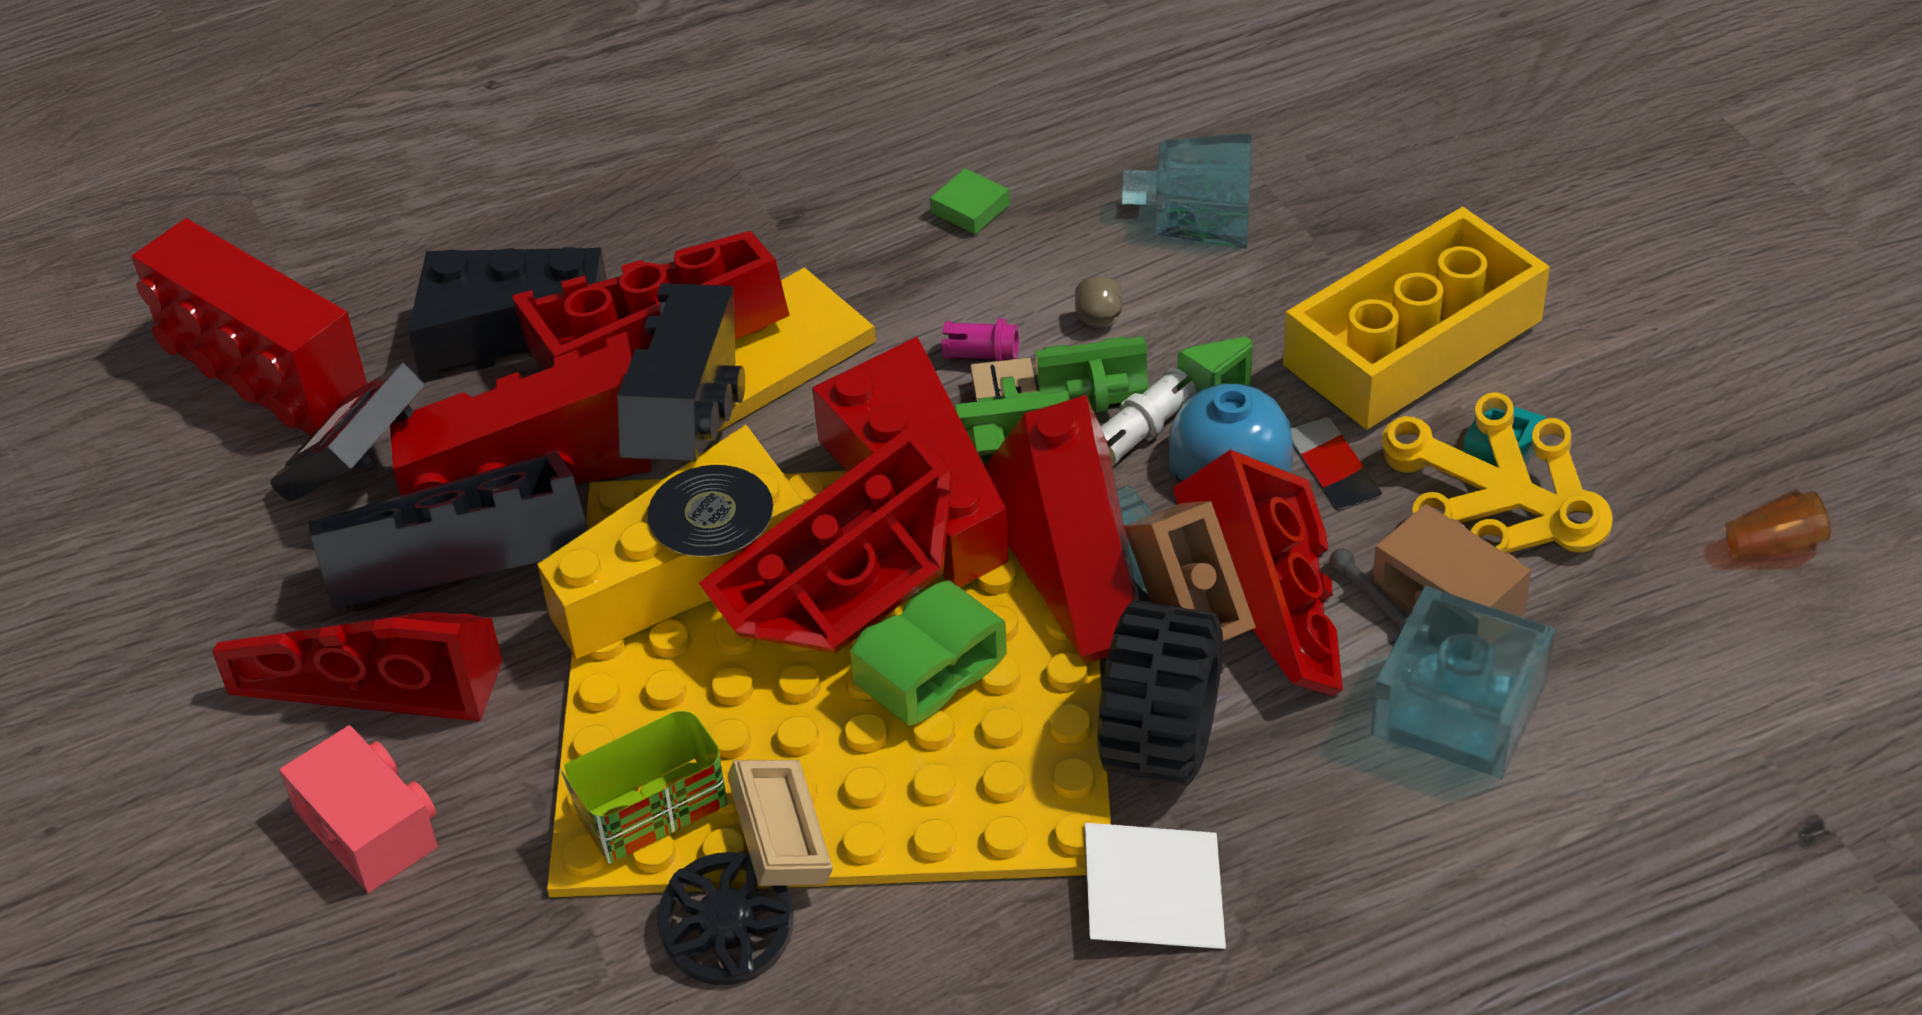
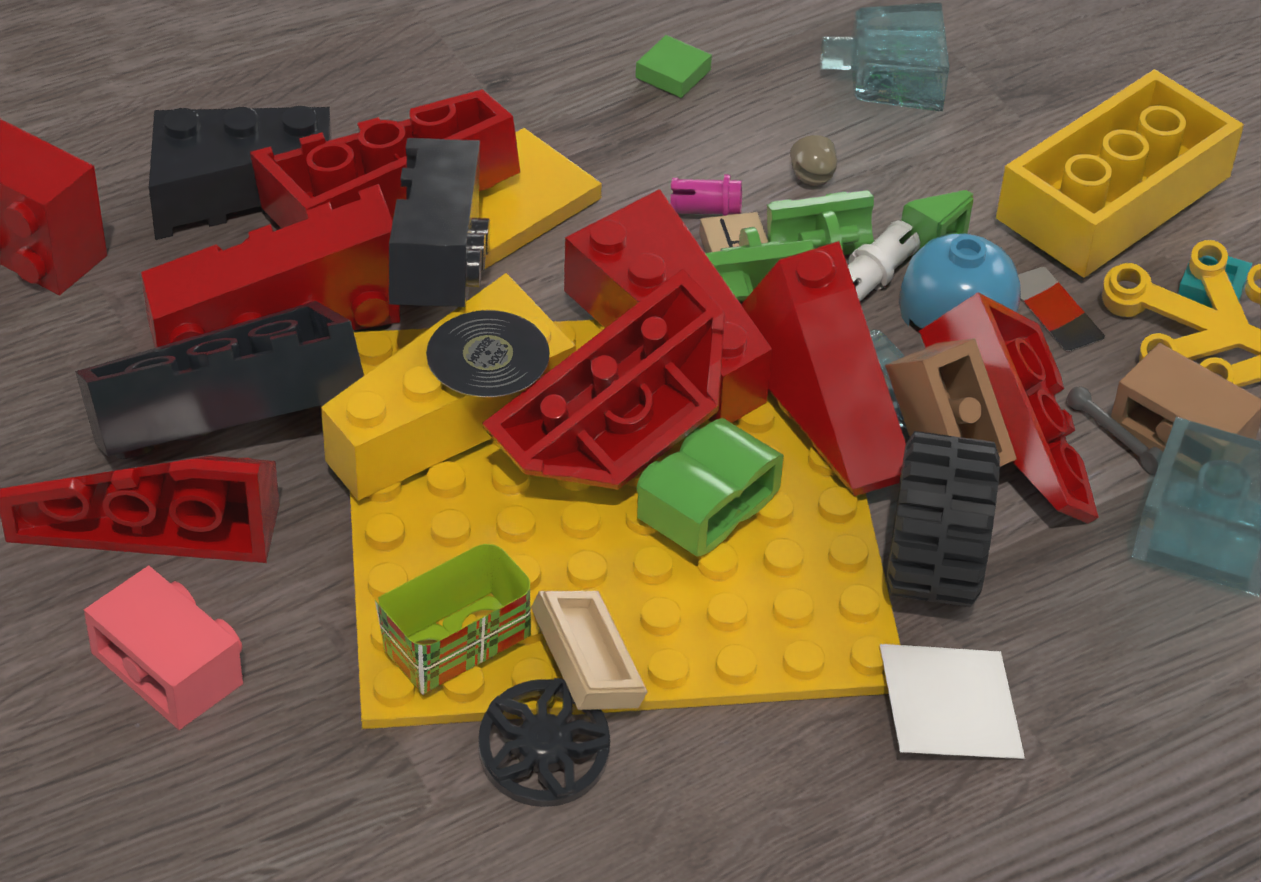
camera: 10 degrees left, 0 degrees up
(349, 433) = (101, 285): container -> none

